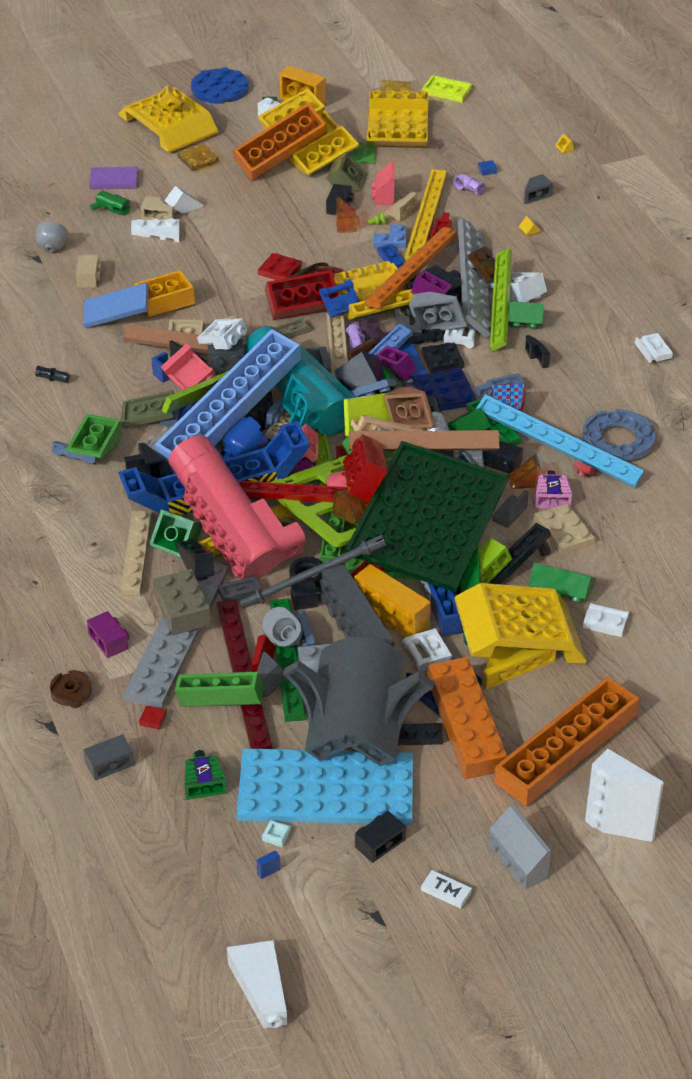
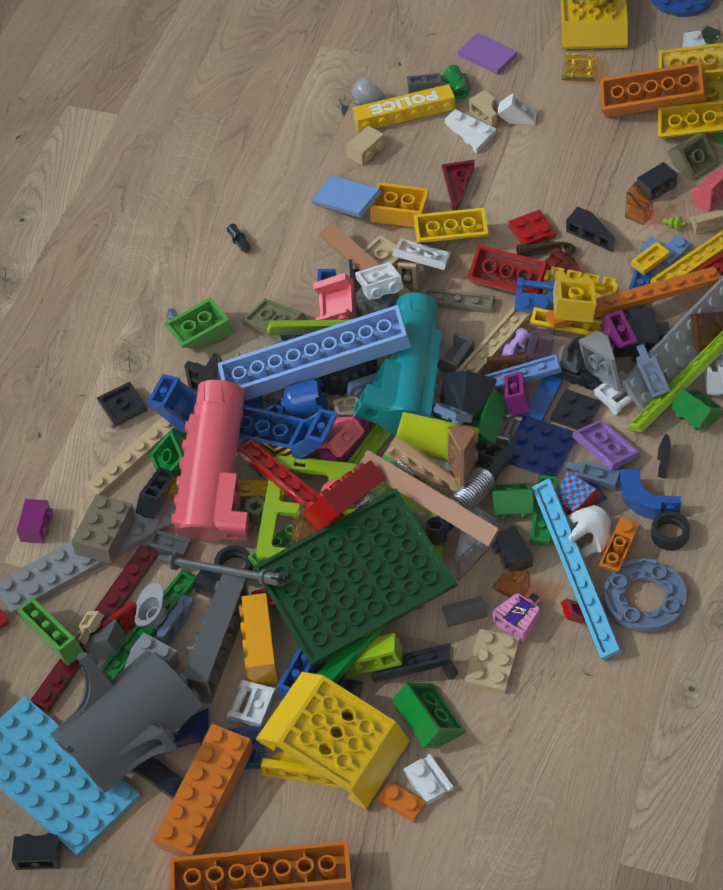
camera: 45 degrees right, 10 degrees up
(86, 523) = (122, 404): none -> black plate
(90, 235) = (404, 108): none -> yellow brick
(91, 215) = (423, 82): none -> dark grey hinge
(186, 261) = (456, 180): none -> dark red wing
(212, 315) = (422, 254): none -> white tile
(221, 287) = (450, 225): none -> yellow slope
(245, 663) = (88, 625): none -> tan plate
(325, 247) = (589, 228): none -> black slope
(382, 277) = (574, 298): none -> yellow brick
(391, 243) = (650, 258): none -> yellow plate
(480, 299) = (651, 372): none -> sand blue hinge
(490, 364) = (606, 444): none -> medium lavender tile
(541, 406) = (590, 520): none -> white piece
(551, 383) = (642, 501): none -> blue arch
(571, 412) = (620, 544): none -> orange slope
(591, 399) = (674, 518): none -> black tyre
(603, 643) = (401, 801): none -> orange plate

